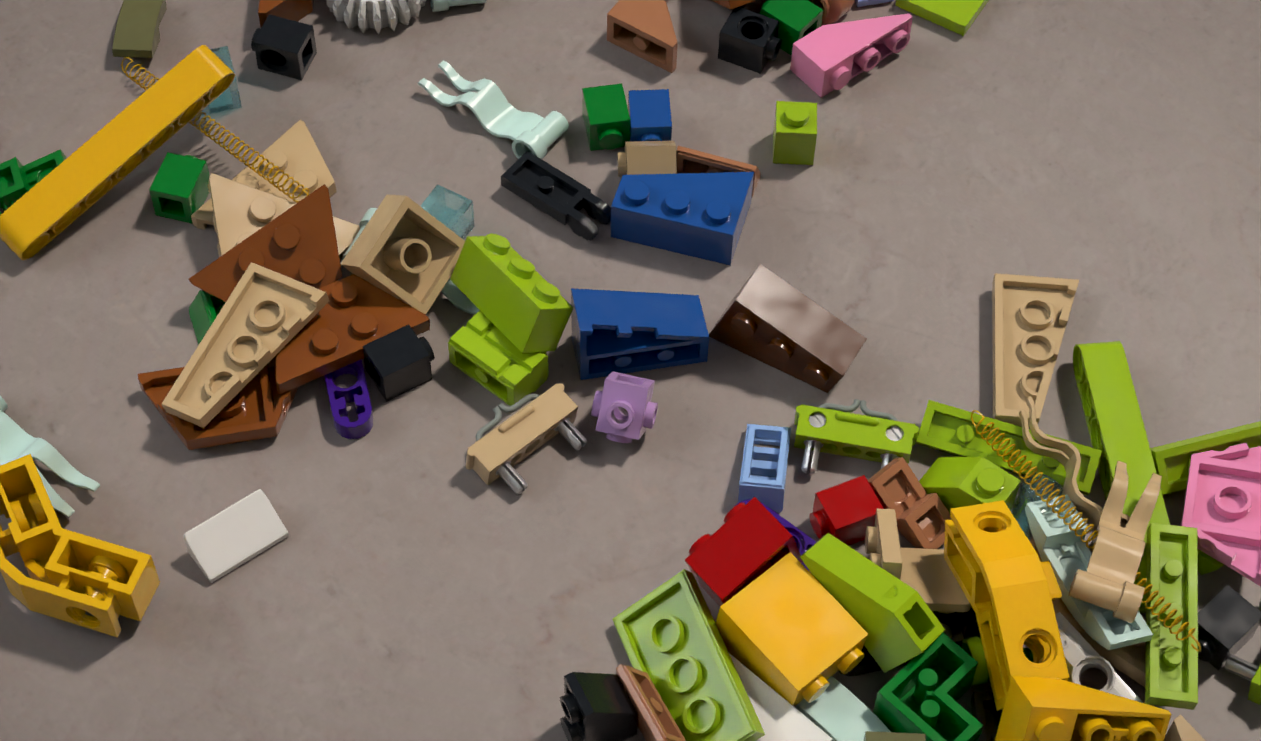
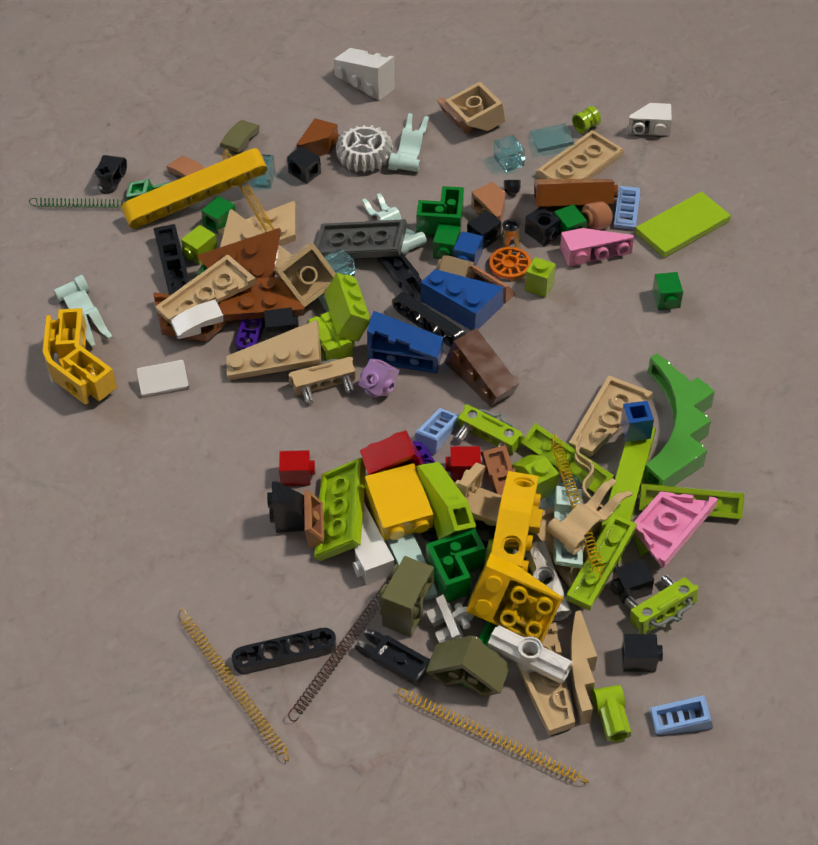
camera: 25 degrees right, 5 degrees down
(74, 115) = (184, 166): none -> nougat slope
(137, 301) = (171, 257): none -> black slope
(173, 255) = (198, 242): none -> lime brick
(247, 404) = (190, 321): none -> white slope
(434, 414) = (281, 353): none -> tan wing
(461, 154) = (363, 238): none -> dark grey tile
(566, 624) = (296, 468): none -> red brick
(581, 62) = (446, 211): none -> green brick
(608, 258) = (426, 318): none -> black beam
(658, 69) = (486, 226): none -> black brick
(706, 63) = (510, 229): none -> piece
(726, 122) = (509, 263): none -> orange wheel
(1006, 93) = (667, 290): none -> green brick
(1102, 344) = (637, 421): none -> brick
(1161, 318) = (687, 401): none -> bright green arch

